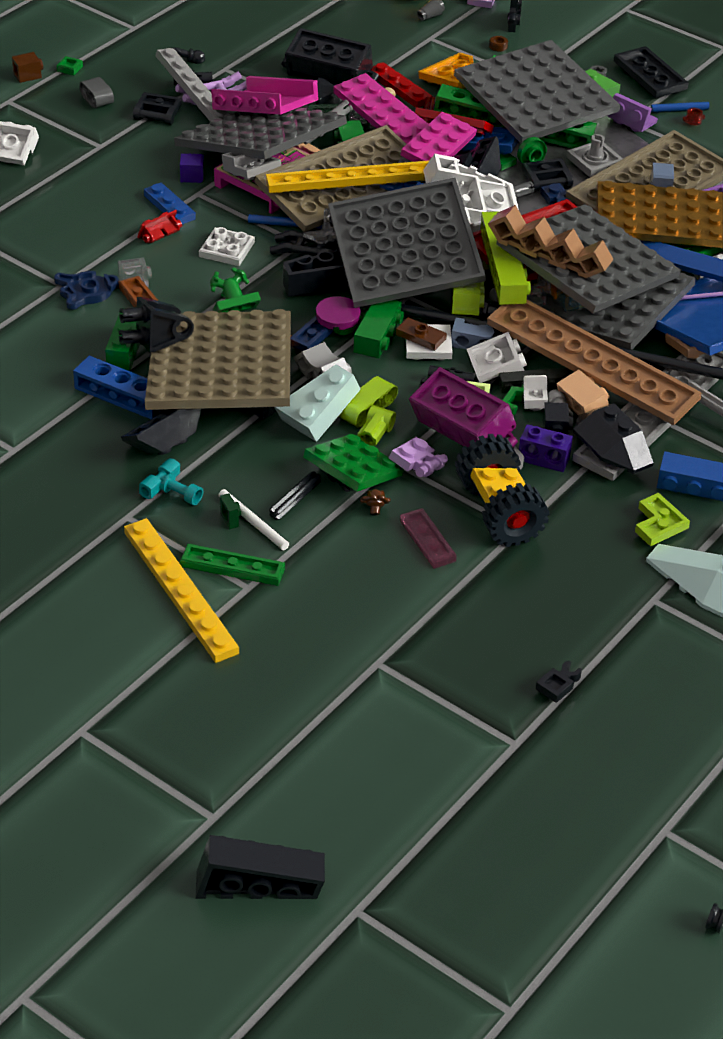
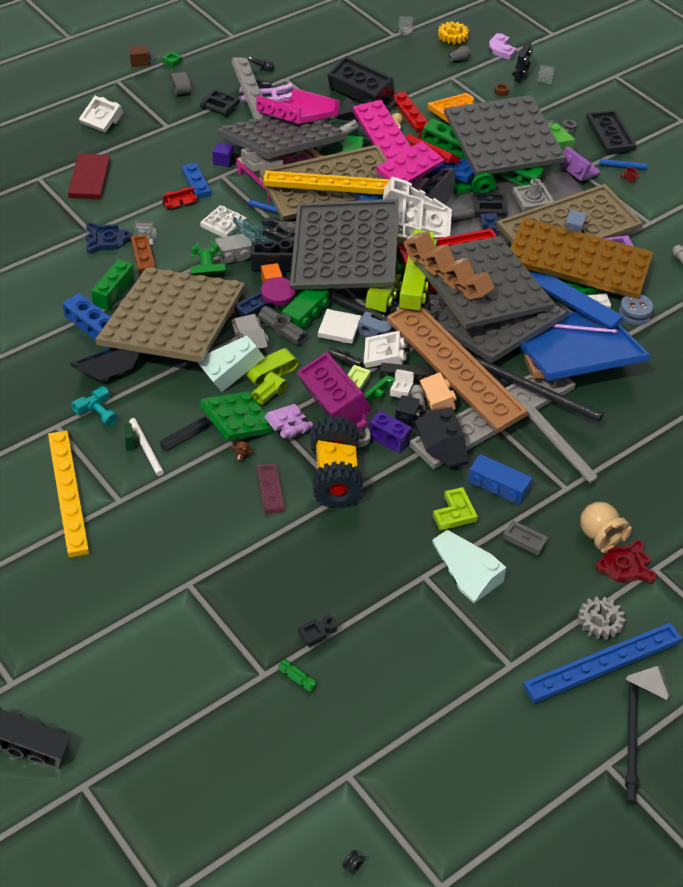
camera: 15 degrees right, 5 degrees up
(29, 219) = (89, 176): none -> dark red tile
(154, 324) = (131, 277): black piece -> none
(232, 564) = (115, 480): green tile -> none
(261, 272) = (234, 248): none -> light grey brick
(273, 247) = (250, 230): none -> clear light blue slope
(316, 293) = (270, 271): none -> orange brick
(360, 352) = (282, 325): none -> dark grey piece
(421, 333) = (333, 319): reddish brown plate -> none
(545, 17) = (546, 74): none -> clear bracket
(558, 735) = (297, 675): none -> green axle

